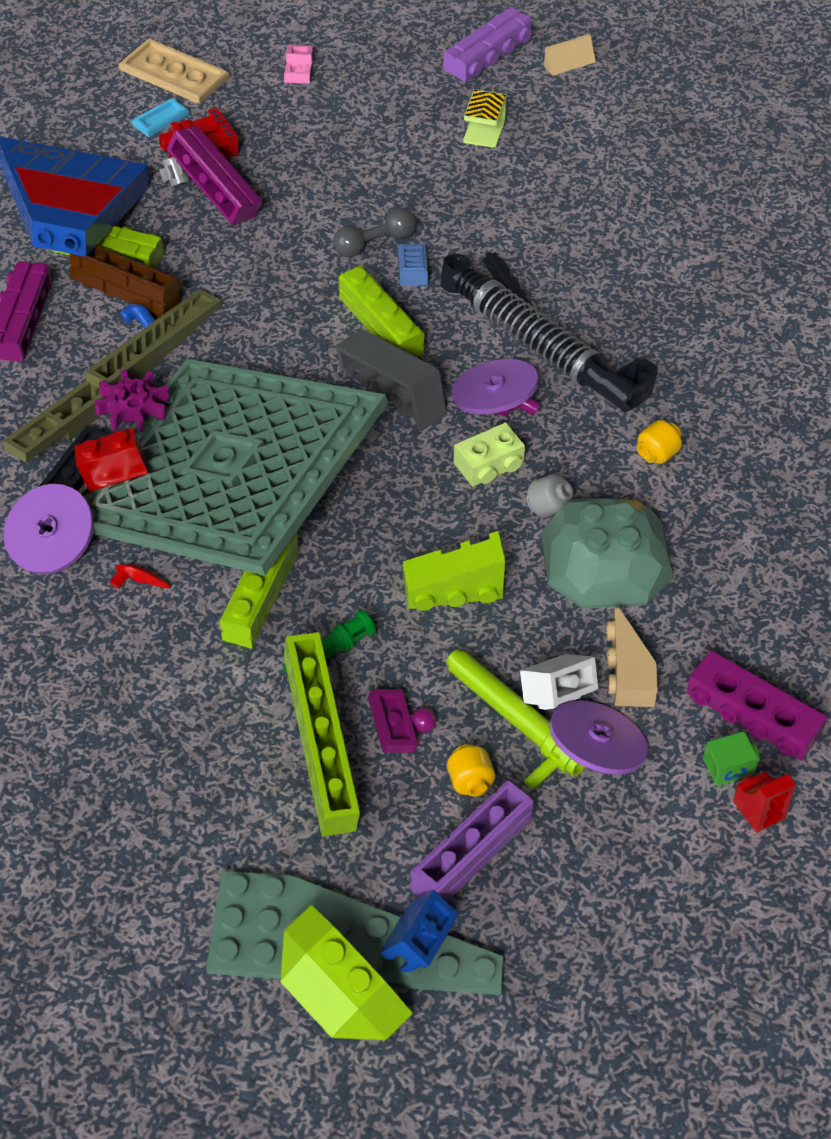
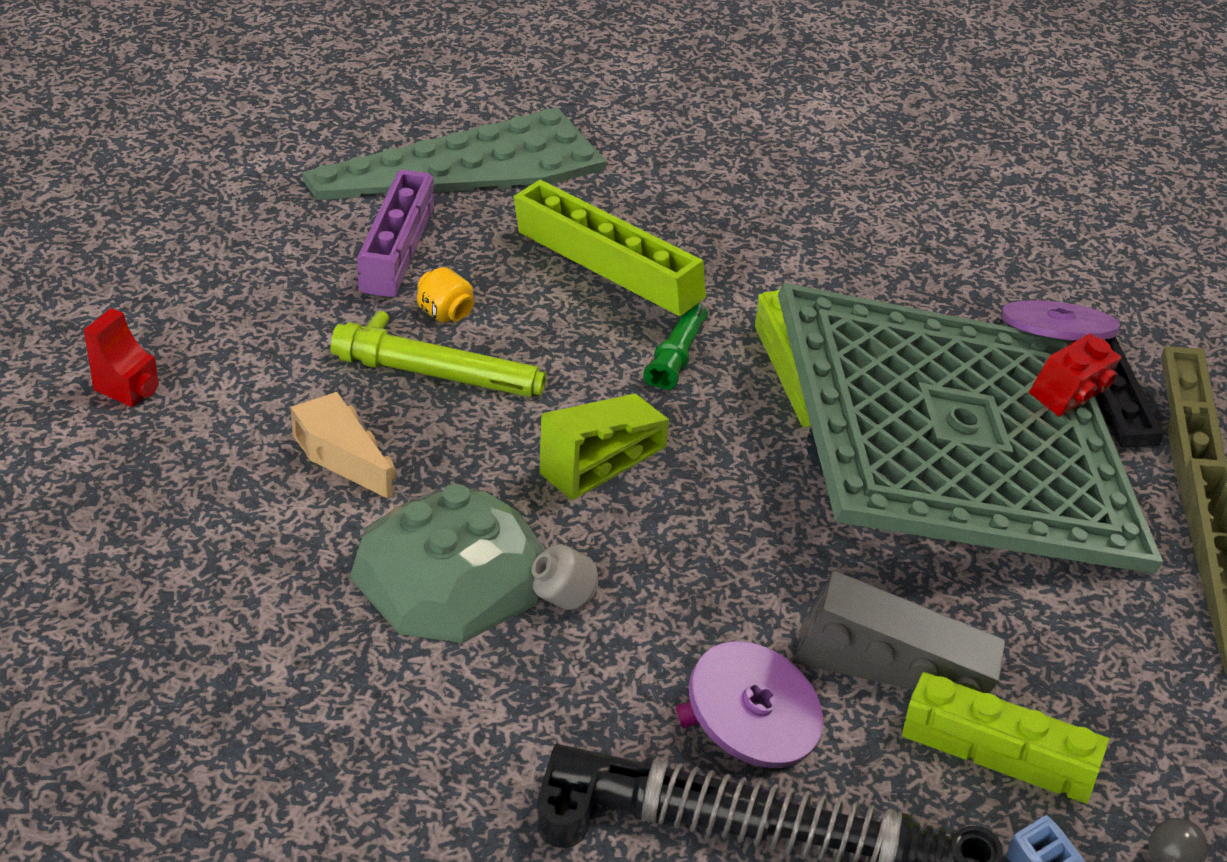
camera: 145 degrees right, 10 degrees down
(132, 400) = (1142, 456): magenta gear -> none
(337, 982) = (440, 115): lime wedge -> none
(395, 724) = (551, 306): magenta plate -> none
(420, 931) = (393, 148): blue hinge -> none
(489, 454) = (683, 606): yellowish green brick -> none
(559, 680) = (406, 372): white brick -> none
(598, 737) = (318, 332): medium lavender piece -> none
(659, 442) = (474, 728): yellow head -> none
(731, 758) = (176, 398): bright green brick -> none
(772, 705) = (171, 457): magenta brick -> none

